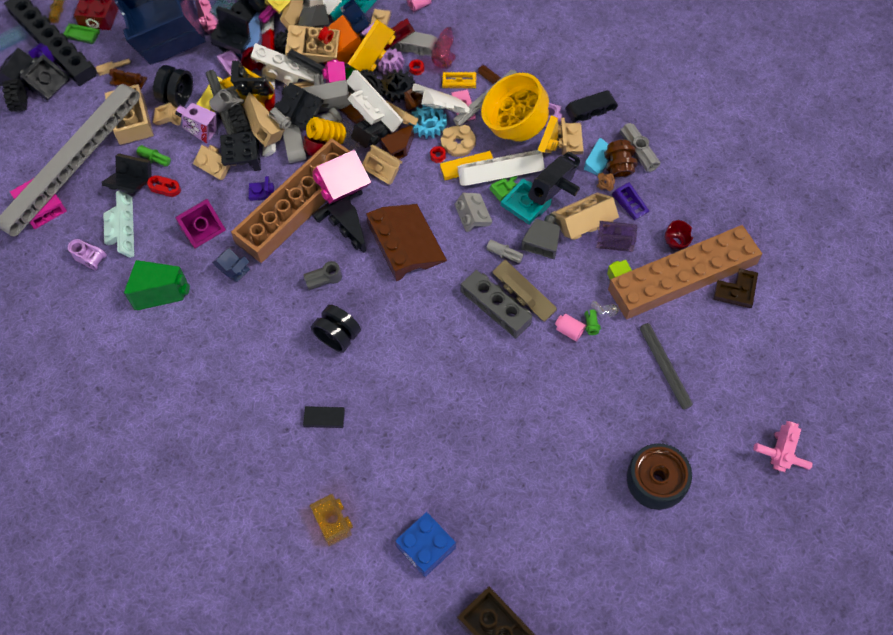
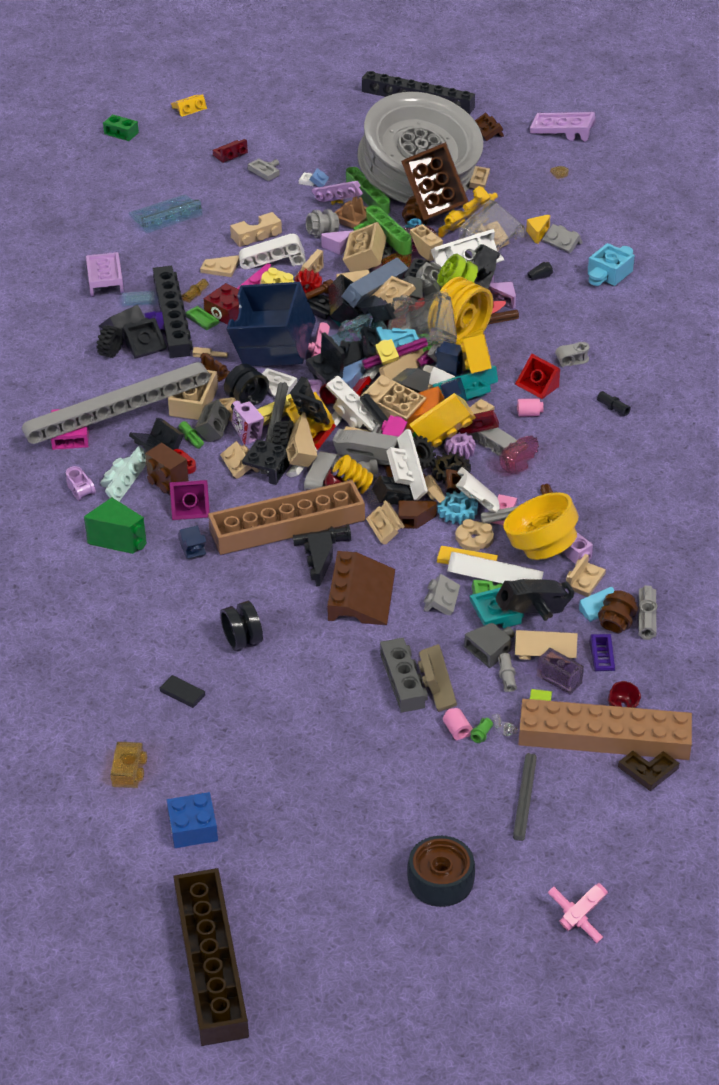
camera: 30 degrees right, 20 degrees down
(159, 203) = (165, 467): none -> reddish brown brick
(166, 134) = (213, 421): none -> dark grey brick
(197, 67) = (276, 377): none -> white wing
(225, 99) = (280, 410): light grey piece -> none
(261, 190) = (260, 495): dark purple bracket -> none
(283, 121) = (317, 447): light grey pin -> none
(298, 105) = (340, 440): black plate -> none
(322, 275) = (271, 585): dark grey piece -> none
(326, 35) = (406, 394): red bush -> none
(341, 177) = (335, 511): brick -> none
(416, 62) = (483, 465): red bush -> none
(441, 150) = (446, 542): red bush -> none
(459, 82) = (514, 490): yellow tile -> none
(504, 251) = (444, 638): light grey axle -> none
(549, 140) = (553, 559): yellow wing -> none
(574, 257) = (507, 672): none -> light grey pin
(591, 106) = (627, 559): black beam -> none
(609, 179) = (589, 625): medium nougat plate -> none

